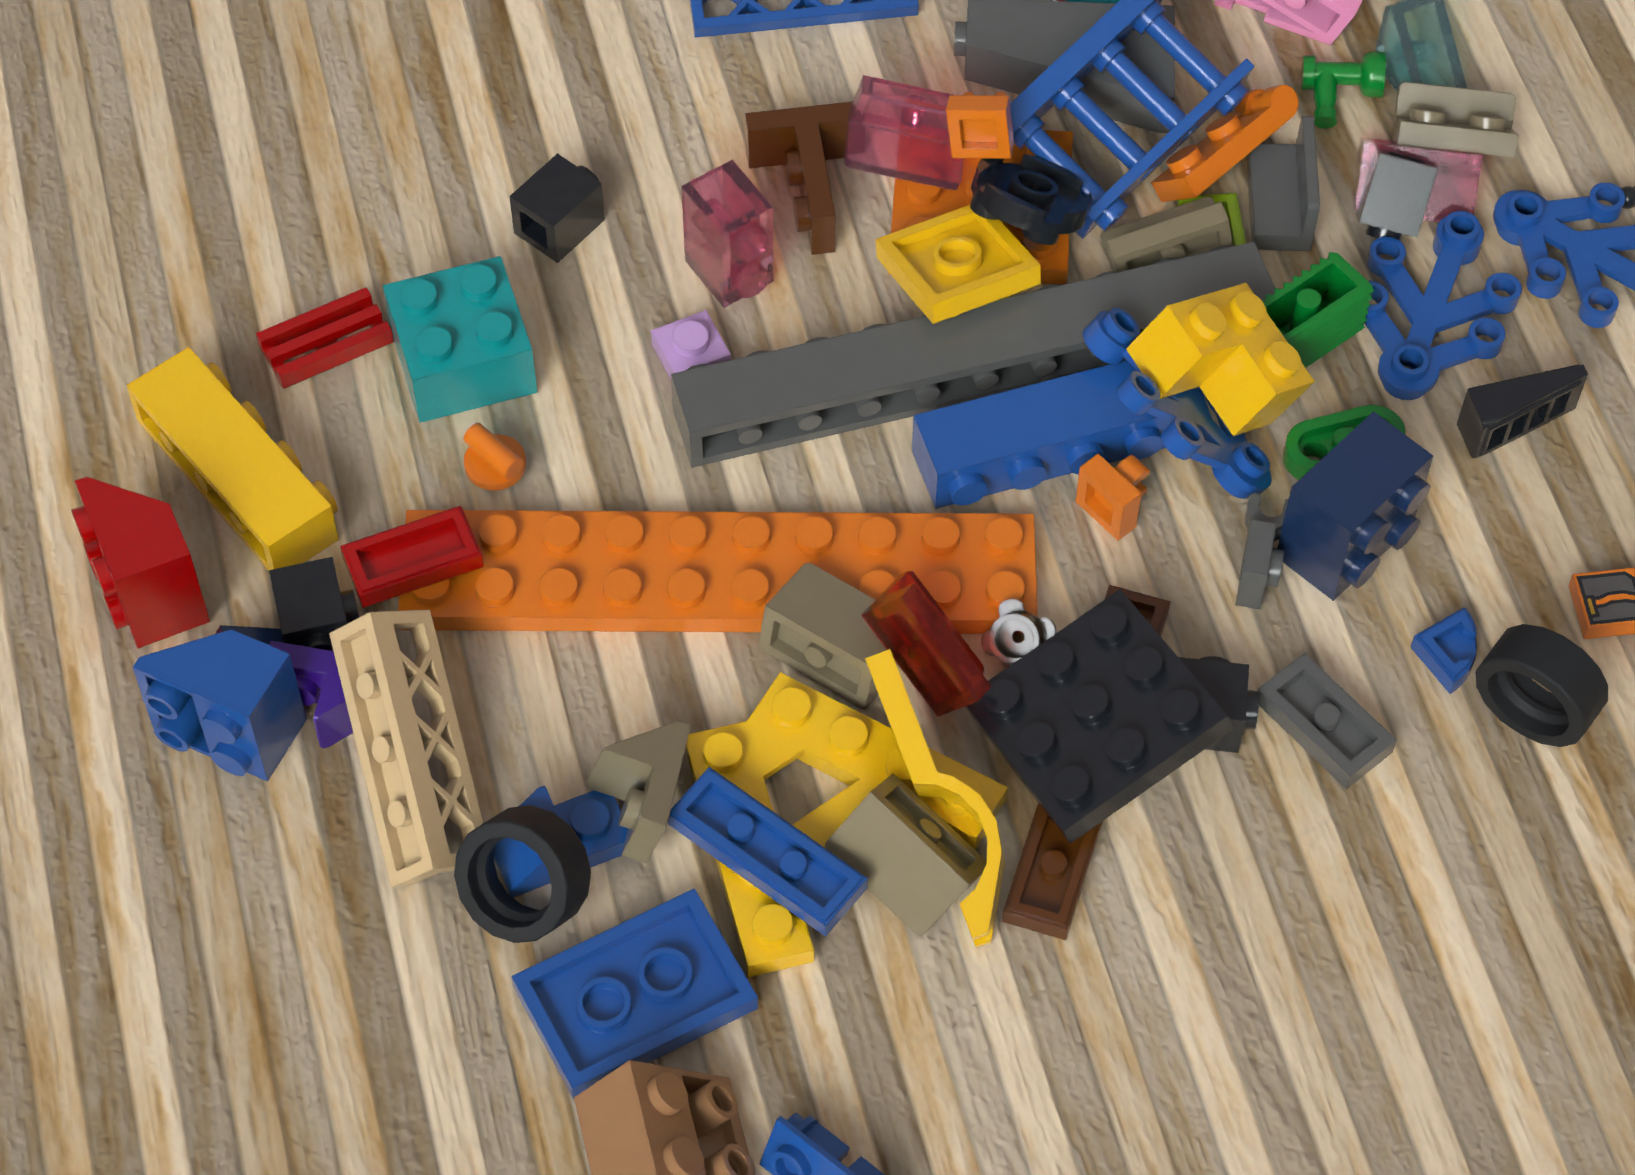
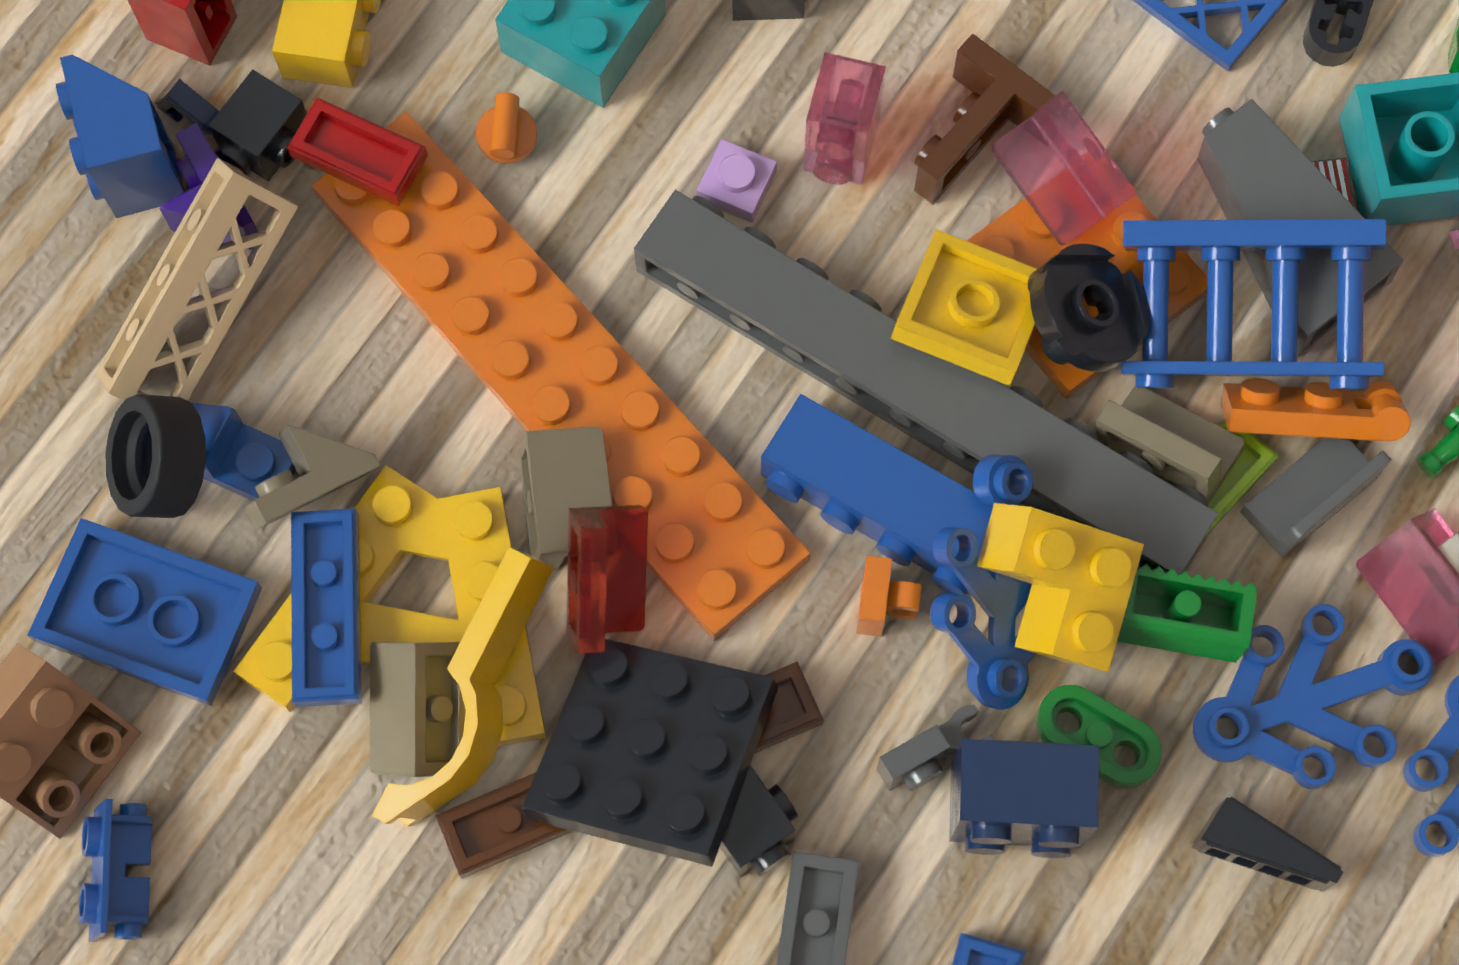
camera: 50 degrees right, 15 degrees up
(980, 126) = (1100, 218): orange tile -> none
(1014, 617) = (685, 630): plate -> none
(1395, 194) = (1385, 584): brick -> none

